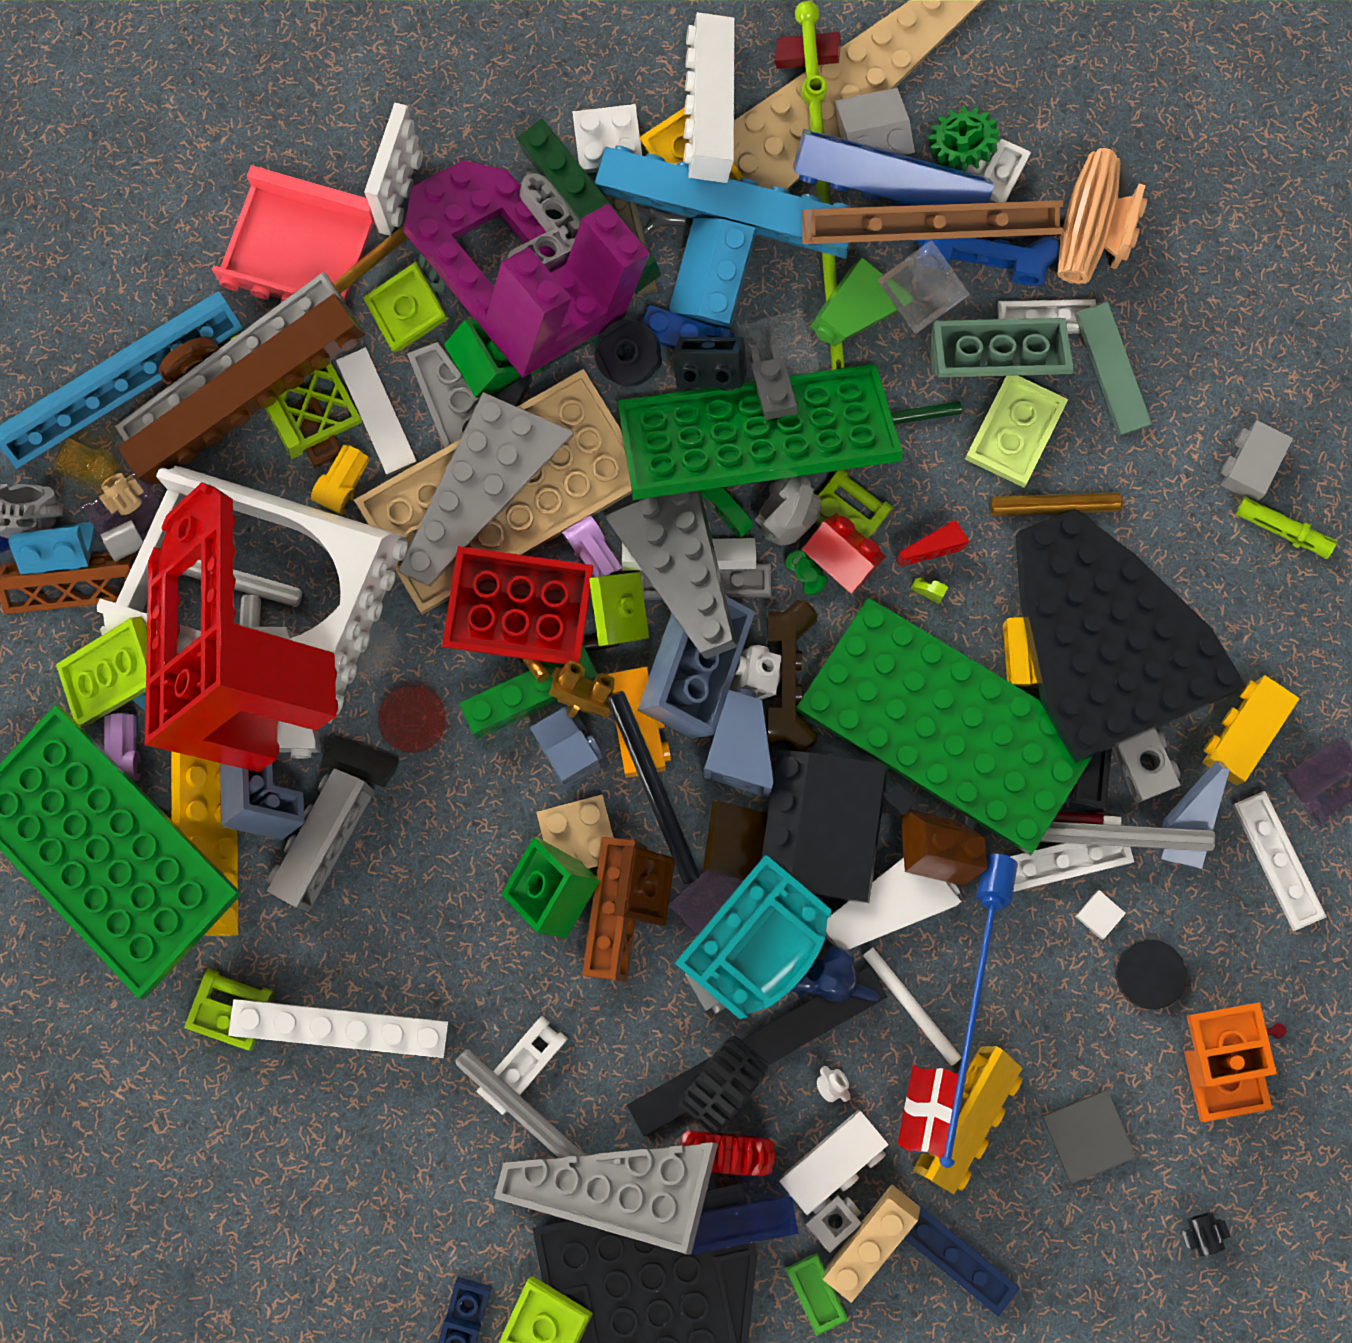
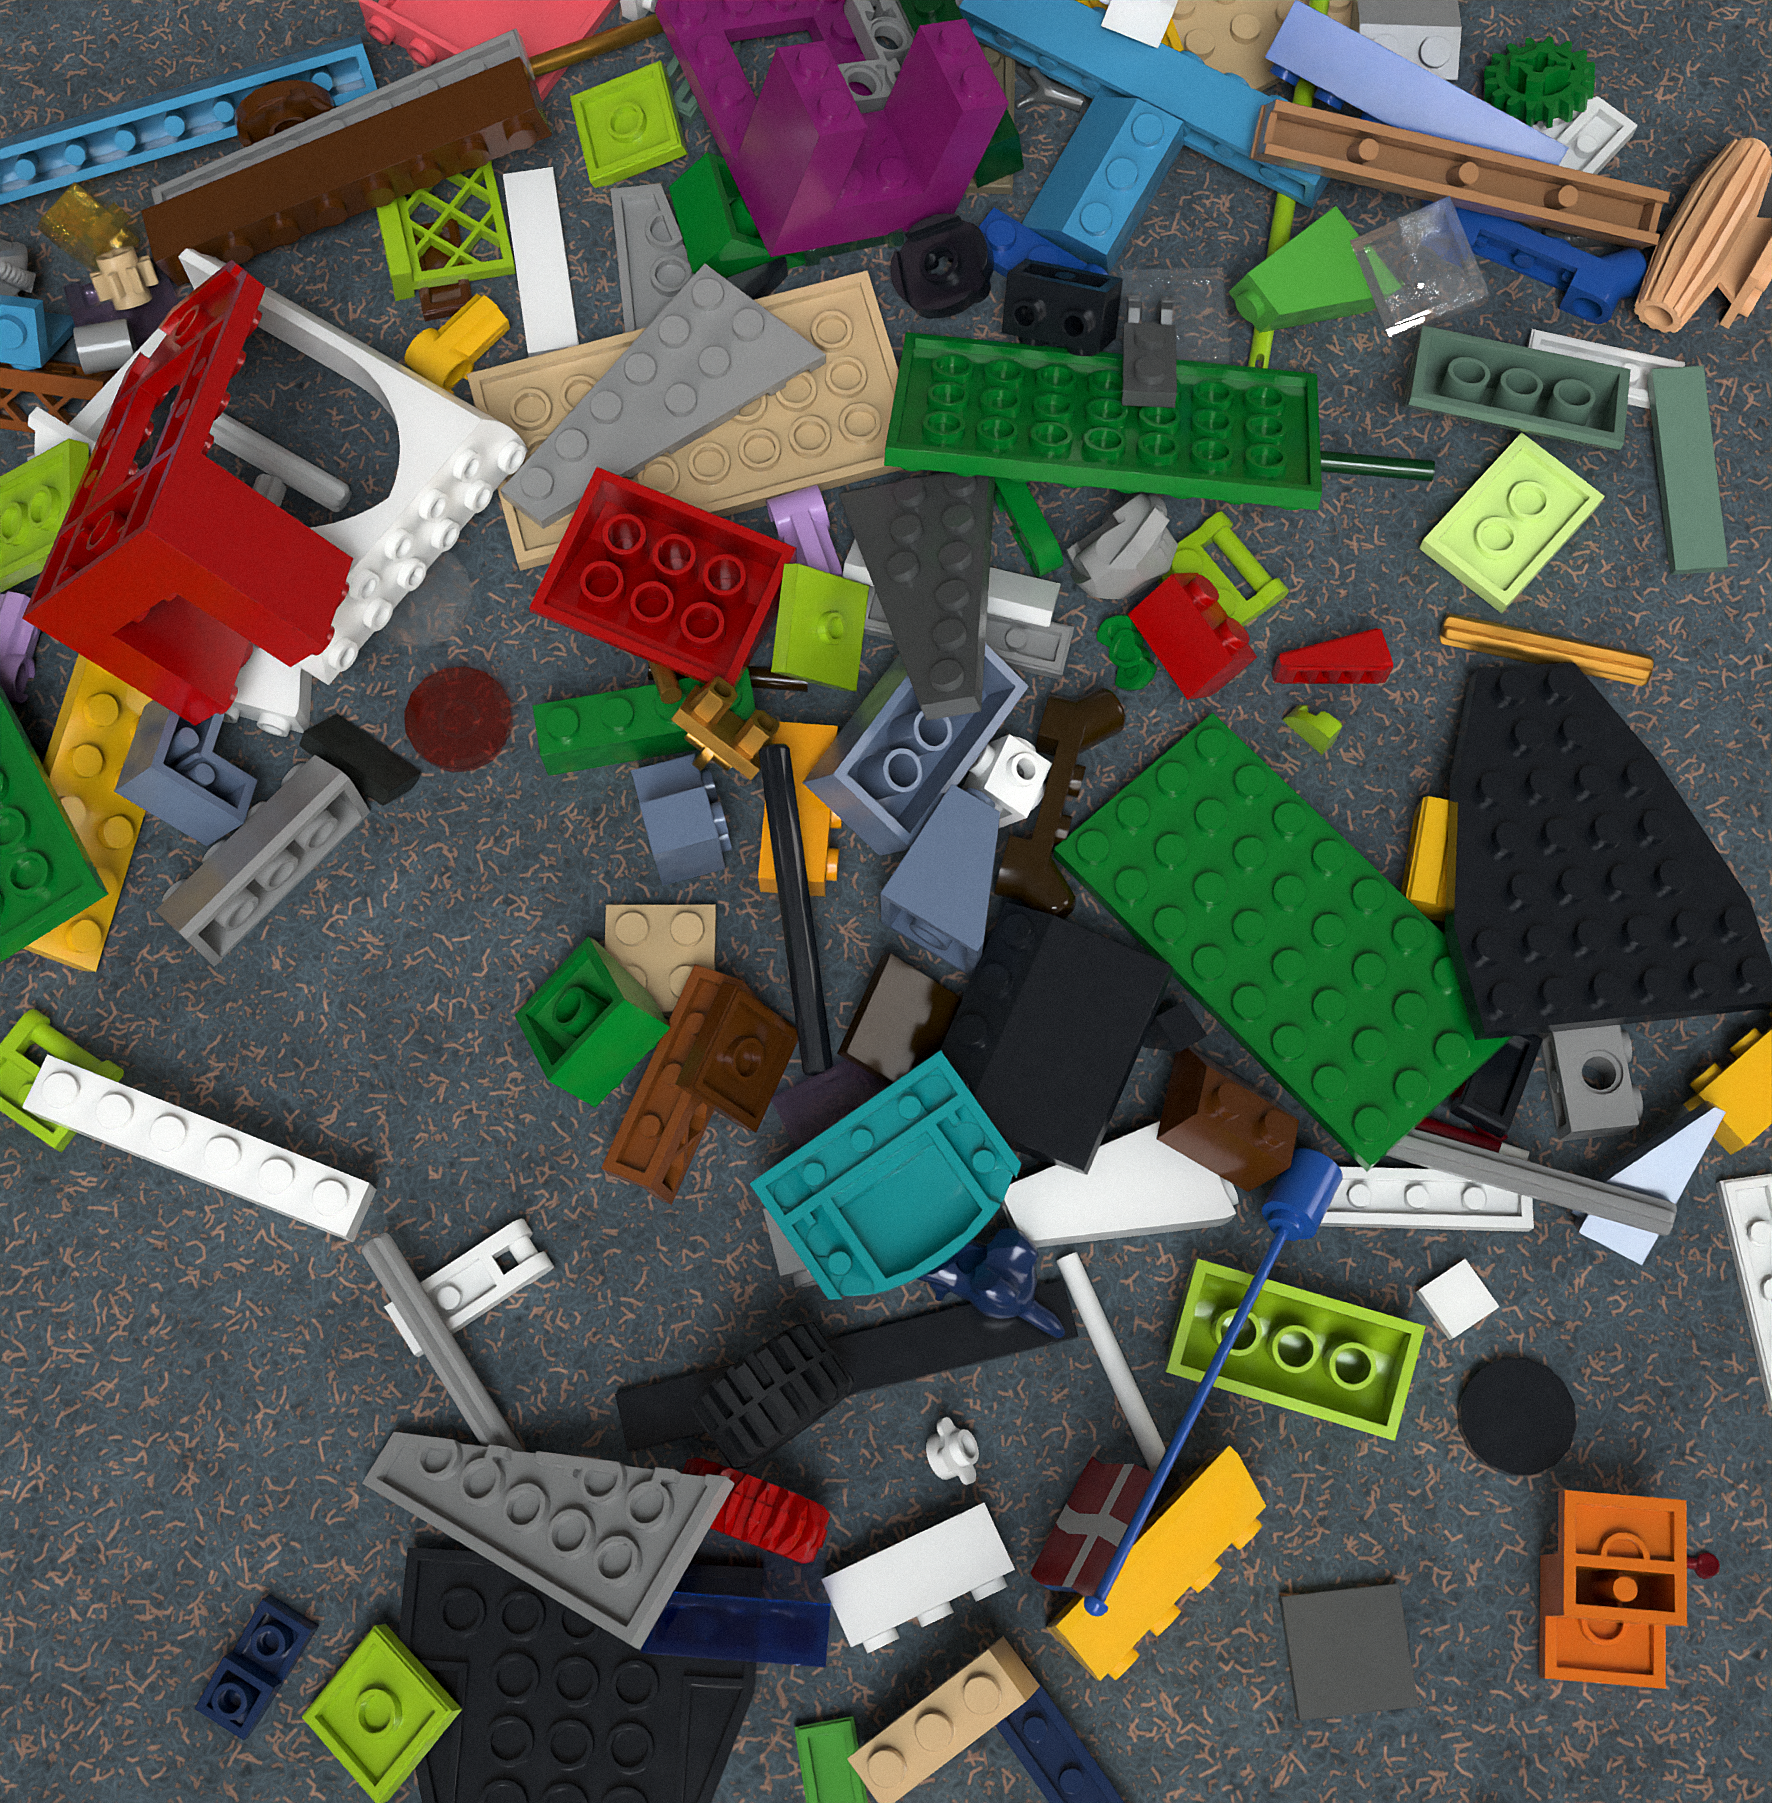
camera: 15 degrees right, 5 degrees down
(831, 1237) = (870, 1667): light grey brick -> none
(1017, 972) = (1297, 1349): none -> lime brick

